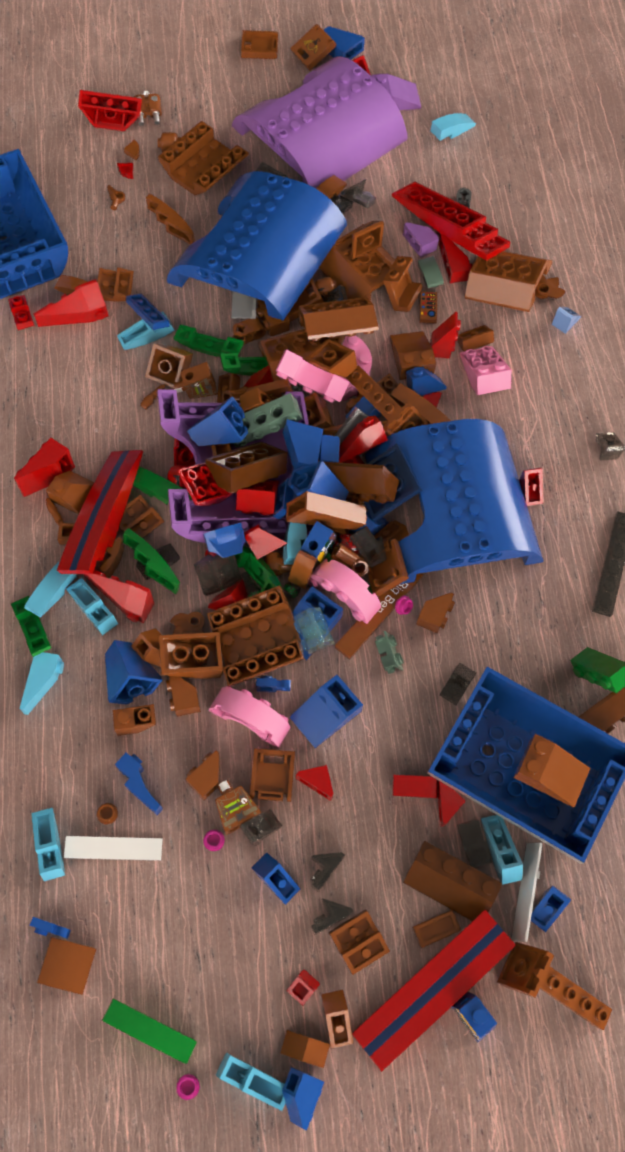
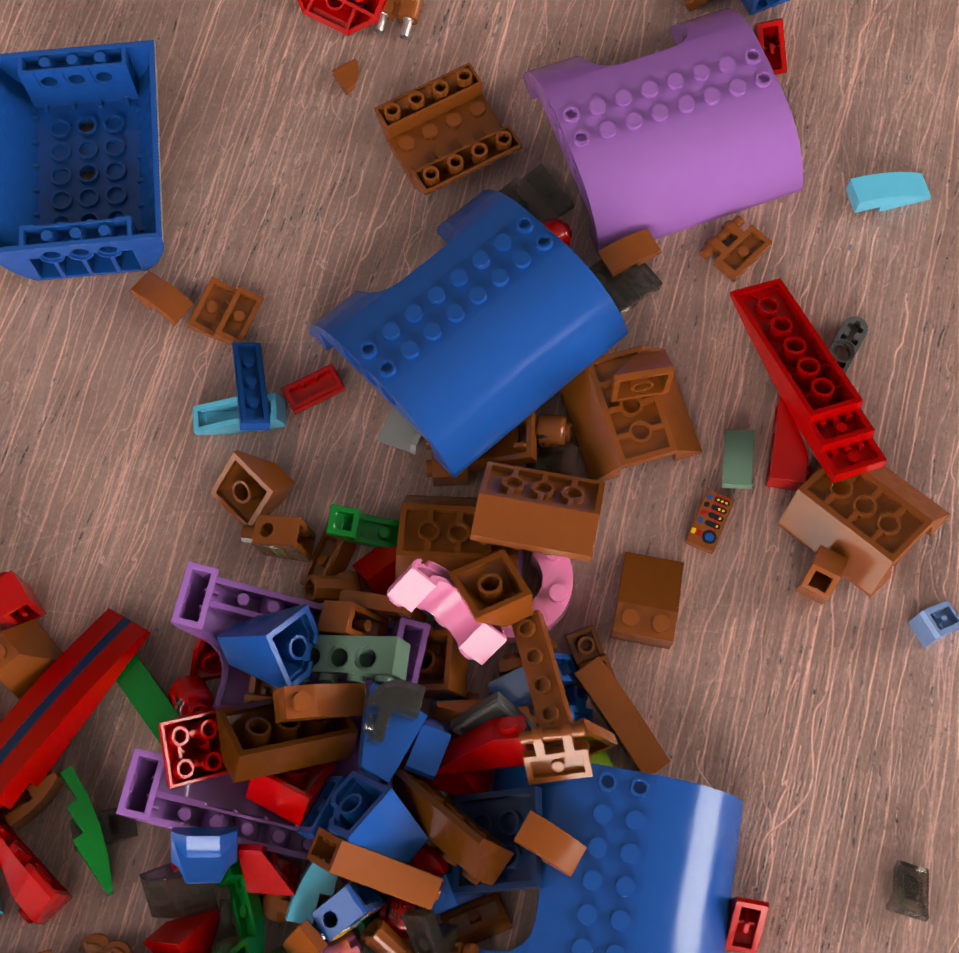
camera: 25 degrees right, 5 degrees up
(21, 312) = (67, 314): red slope -> none
(81, 306) = (161, 339): red wedge -> none
(116, 196) = (289, 153): dark orange animal -> none
(126, 170) = (324, 108): red tile -> none
(140, 517) = (102, 744): dark orange slope -> none
(149, 399) = (201, 535): dark orange piece -> none
(167, 140) = (404, 80): dark orange head -> none
(174, 222) = (356, 230): dark orange slope -> none
(182, 307) = (313, 389): none -> red plate
(207, 344) = (328, 468): green slope -> none
(249, 329) = (400, 468): dark orange piece -> none
(258, 440) = (318, 701): none -> dark orange slope
(303, 422) = (390, 699): none -> clear smoke brick
(359, 196) = (673, 272): clear smoke slope -> none
(389, 175) = (741, 254): none -> dark orange plate
(400, 286) = (674, 475): dark orange panel -> none
(401, 90) = (817, 98): medium lavender slope -> none
(405, 427) = (556, 762): none -> dark orange plate
(415, 463) = (550, 843): none -> dark orange slope
(420, 238) = (747, 391): medium lavender slope -> none
(424, 381) = (644, 663): blue slope -> none
(433, 398) = (646, 696): red tile -> none
(444, 337) = (706, 599): red slope -> none
(475, 338) = (765, 605): dark orange slope -> none
(486, 370) = (757, 674): bright pink slope -> none
(499, 310) = (822, 575): none -> dark orange slope
(549, 288) = (931, 554): dark orange plate -> none

